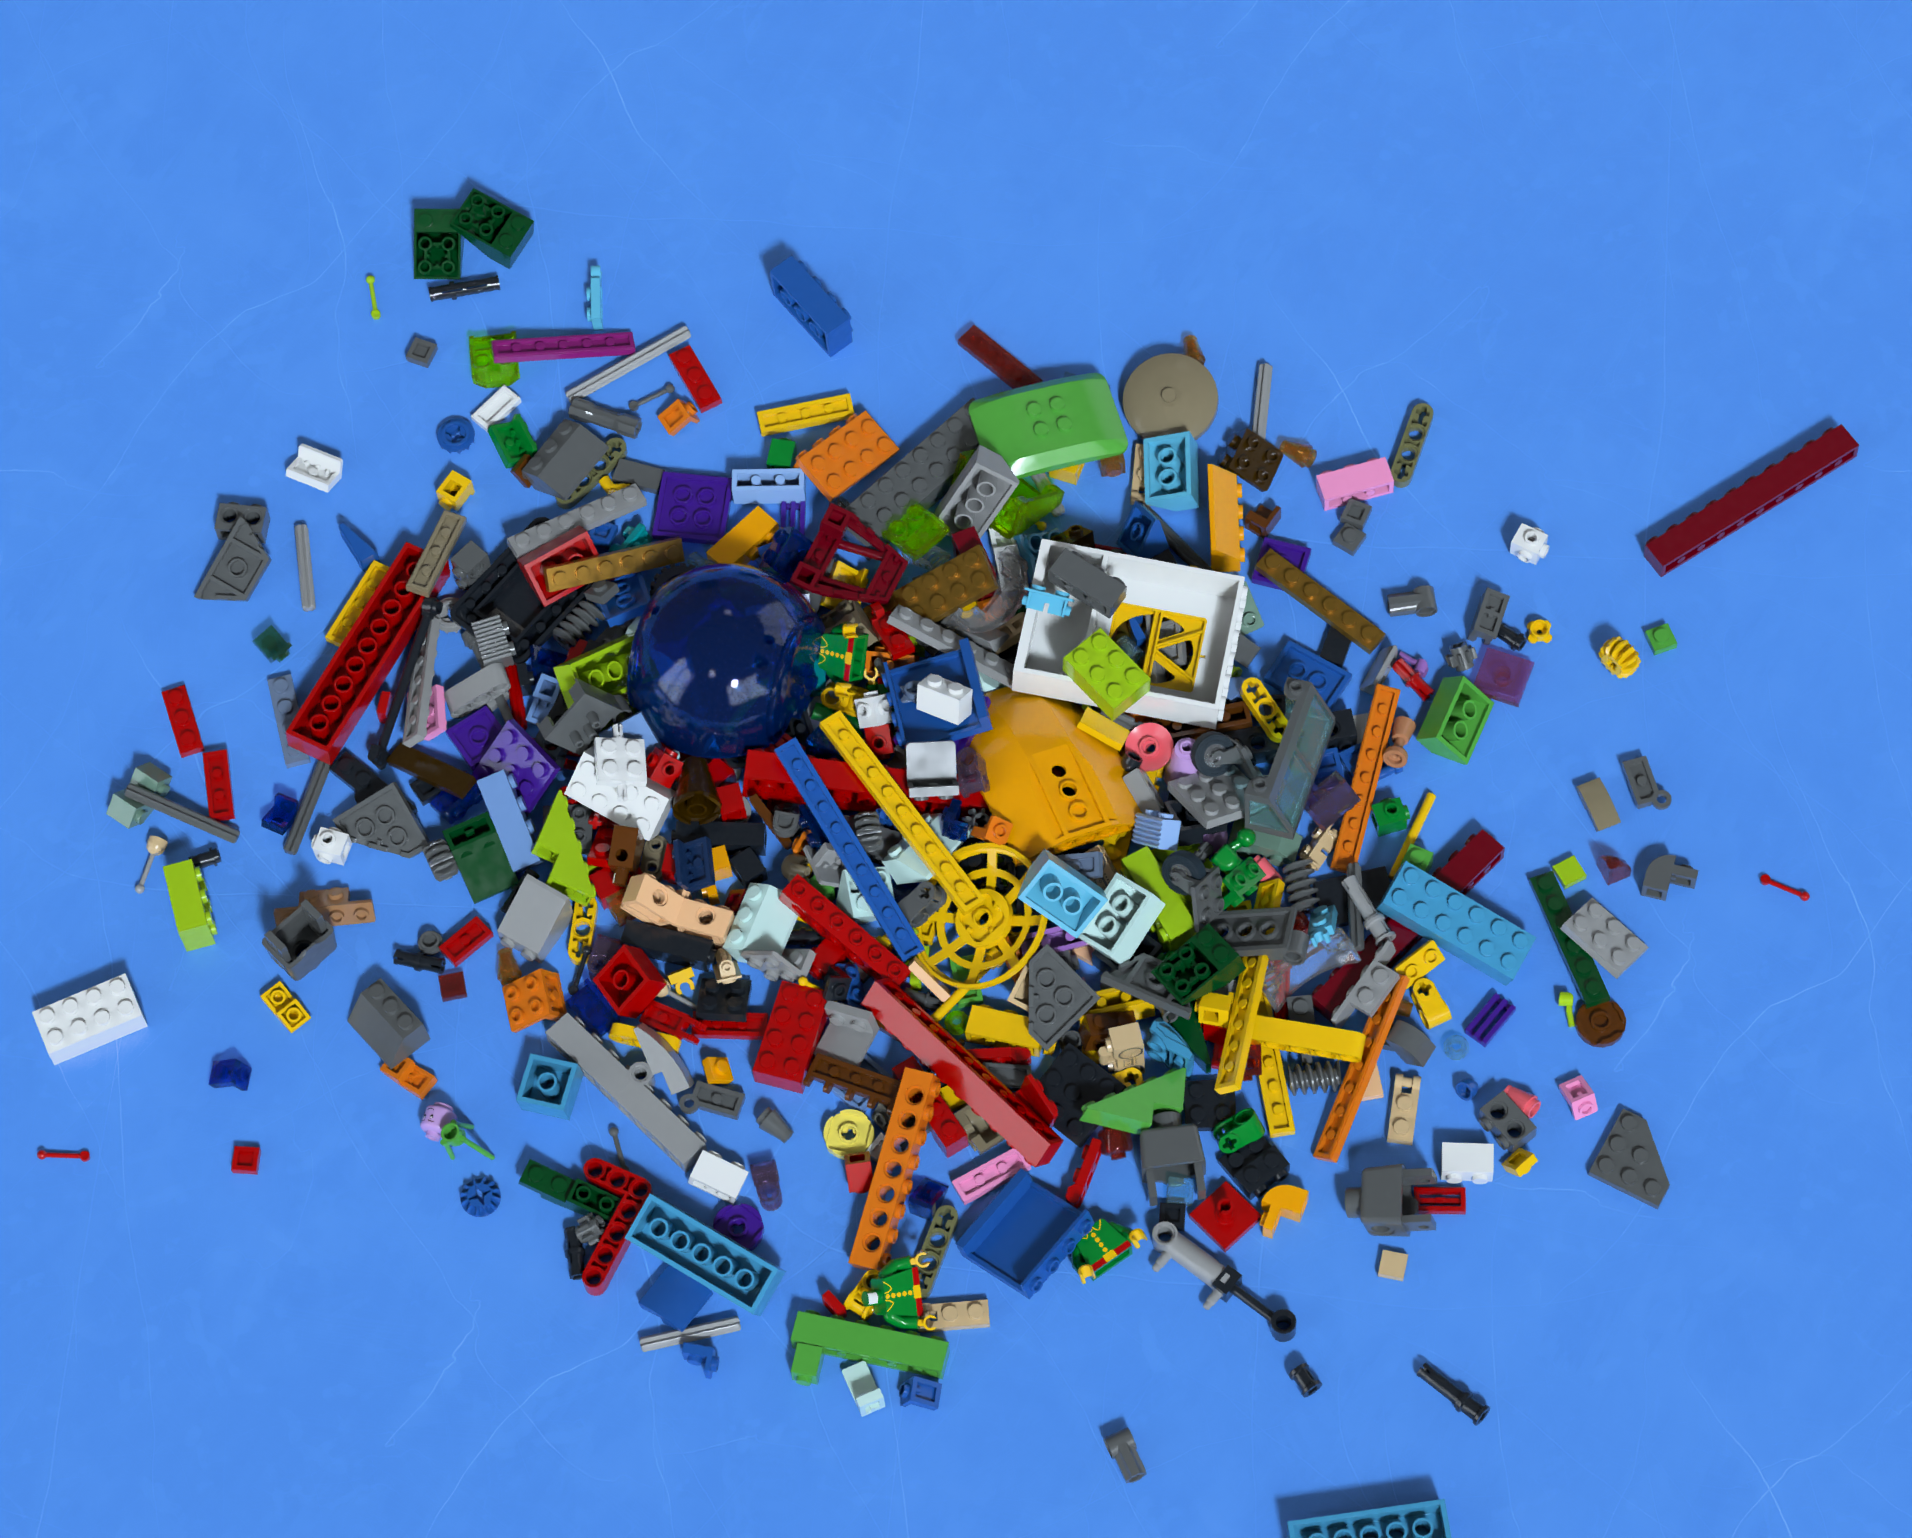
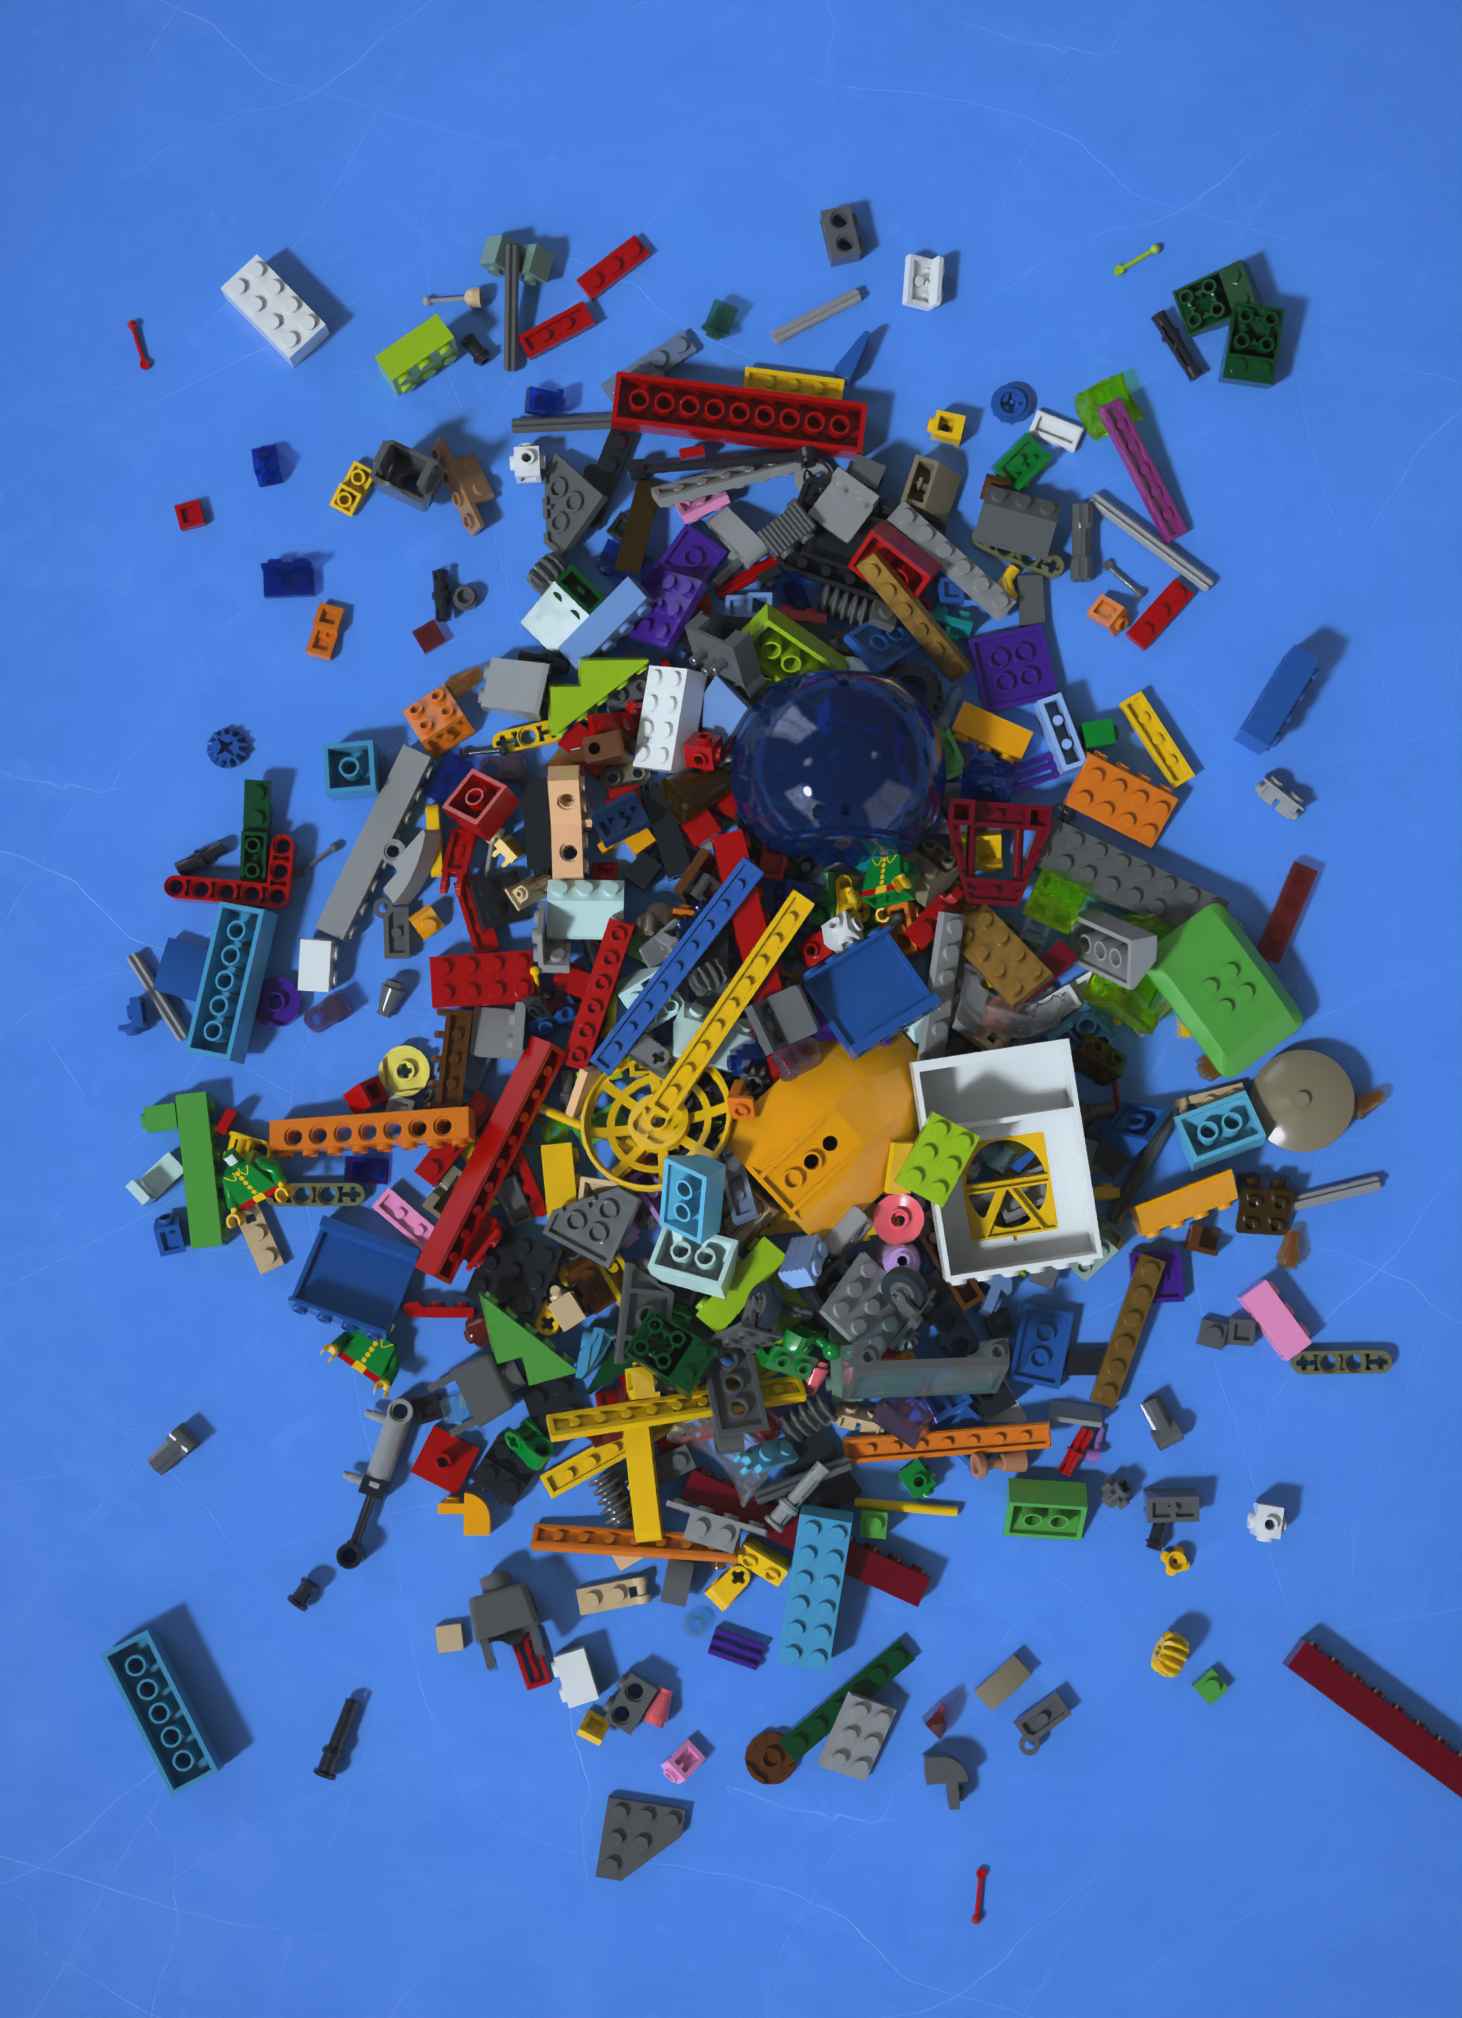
camera: 60 degrees right, 20 degrees up
(236, 567) = (789, 250): dark grey wing -> none
(344, 1090) = (288, 578): none -> clear blue bracket
(387, 1024) = (364, 592): dark grey slope -> none
(421, 352) = (1090, 333): dark grey plate -> none
(435, 1118) = (283, 679): lavender head -> none
(436, 553) = (863, 438): dark tan tile -> none
(454, 1135) = (265, 703): bright green plant -> none
(466, 941) = (476, 631): red plate -> none
(489, 587) = (844, 505): none -> light grey bracket
(498, 520) = (931, 487): none -> dark tan slope
(590, 1229) = (224, 865): dark grey gear -> none
(595, 295) = (1215, 478): medium azure plate -> none
(620, 762) = (687, 709): white plate -> none
(785, 823) = (686, 893): dark grey tile -> none
(888, 338) = (1288, 801): none -> light grey hinge
(908, 690) = (873, 963): sand blue plate -> none
(944, 699) = (864, 1002): white brick -> none
(1057, 603) = (1000, 1059): medium azure hinge -> none
(1087, 582) = (1032, 1104): dark grey brick -> none
(1131, 761) = (875, 1207): black hinge -> none
(1249, 699) = (996, 1309): yellow beam -> none
(1463, 1086) = (653, 1650): blue hinge -> none
(1503, 676) = (1110, 1541): plate -> none
(1566, 999) = (782, 1717): lime hand -> none
(1569, 872) = (920, 1675): lime tile -> none

